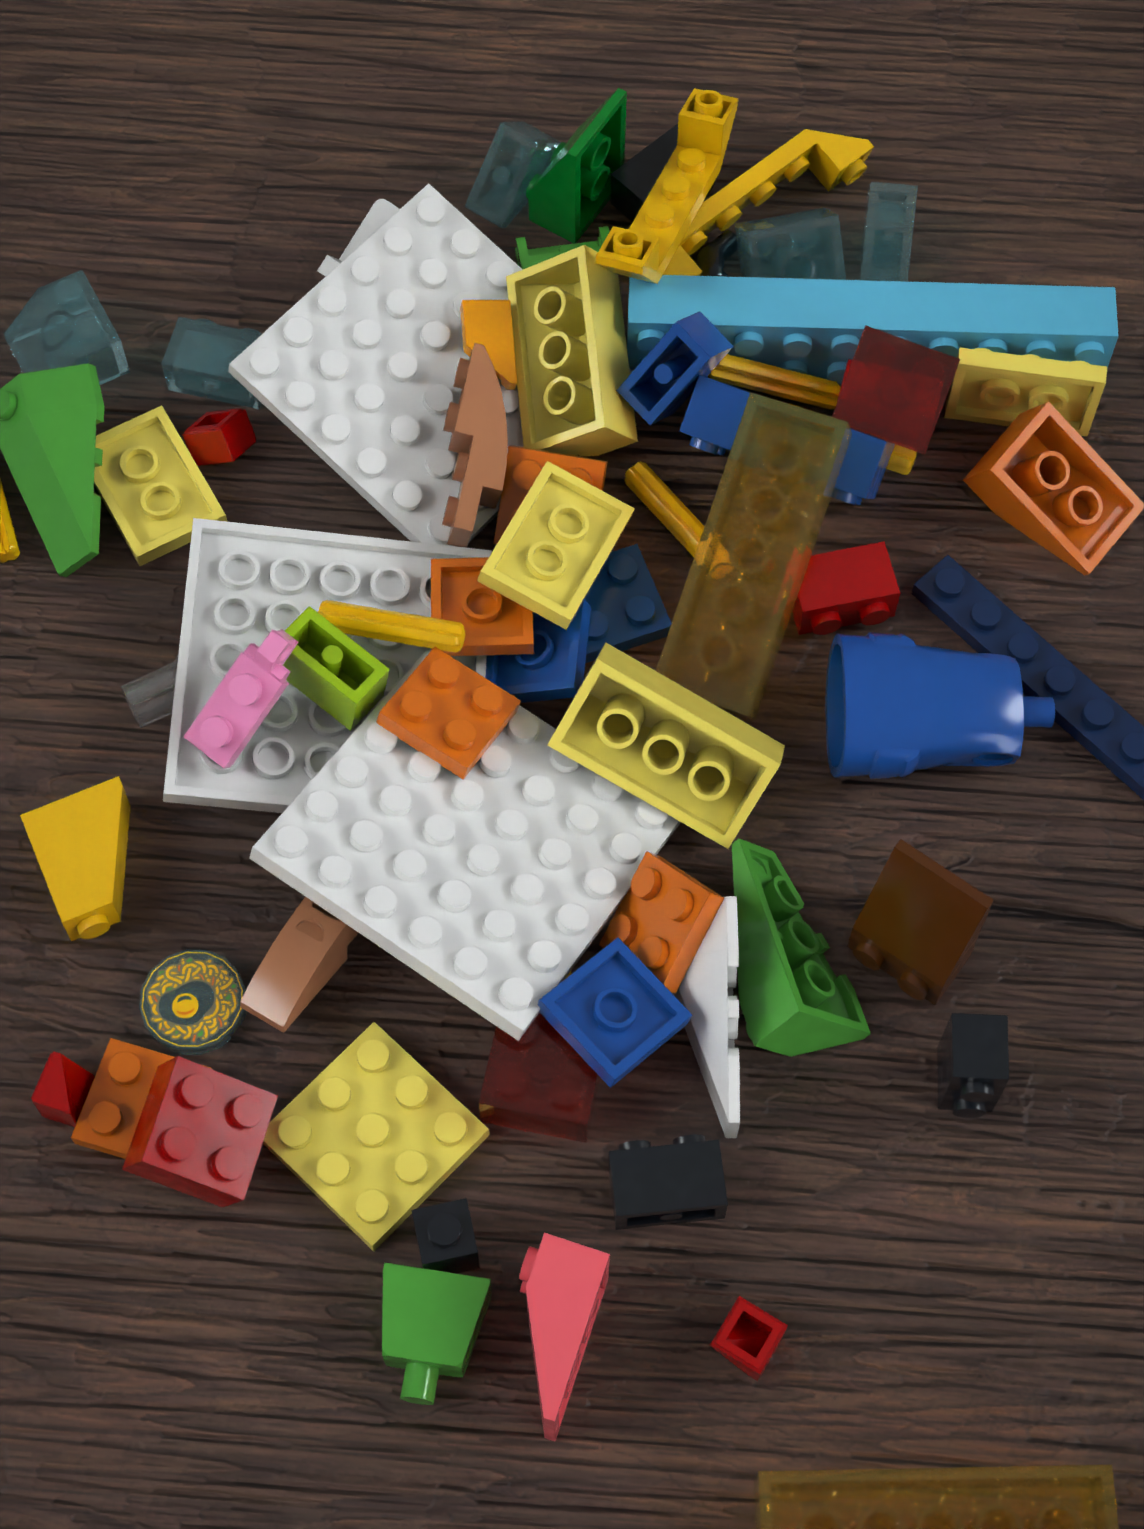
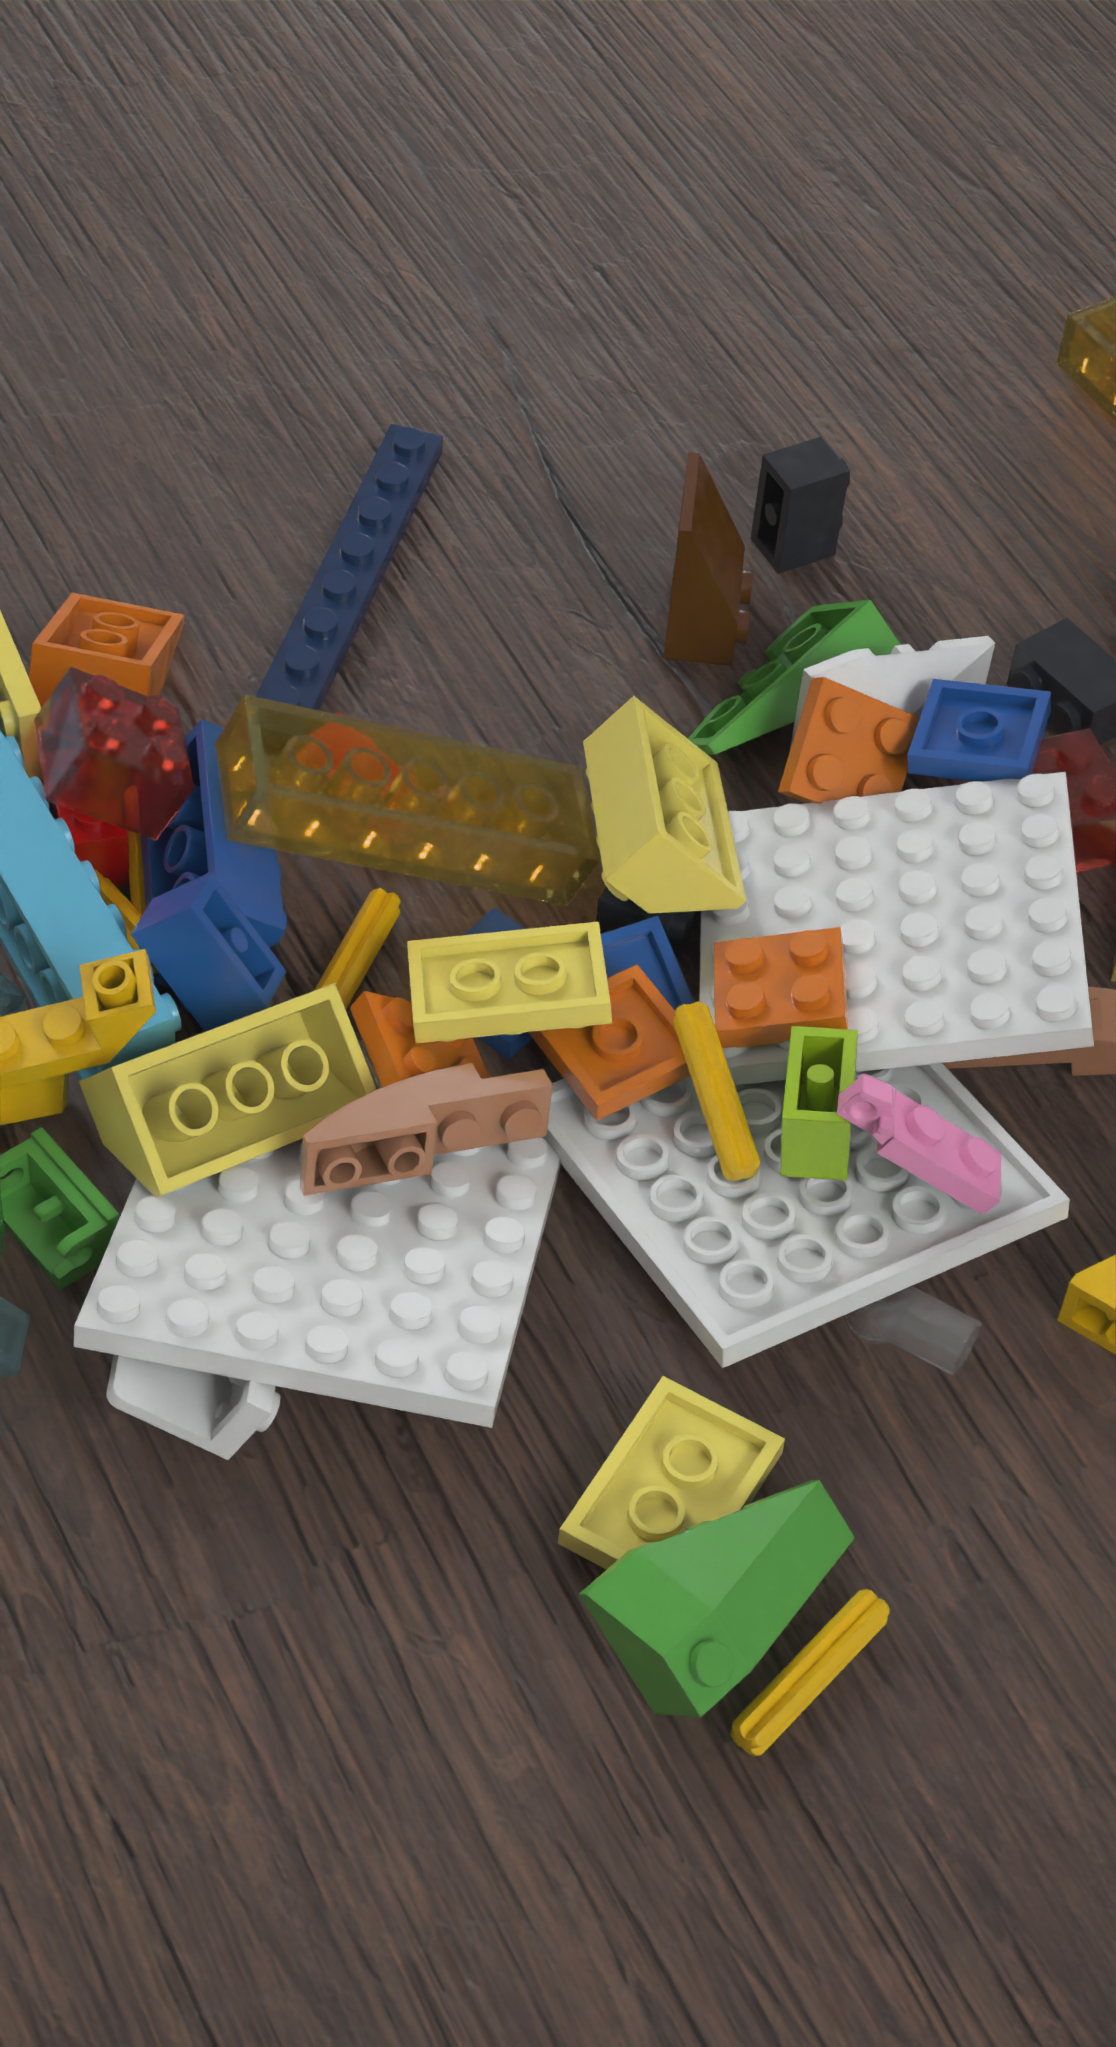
camera: 125 degrees left, 15 degrees down
(66, 328) = (535, 1706): clear light blue slope -> none
(200, 361) = (449, 1506): clear light blue brick -> none
(219, 436) = (550, 1457): red slope -> none
(491, 325) = (256, 1177): light orange tile -> none
(923, 707) = (469, 656): blue torso -> none

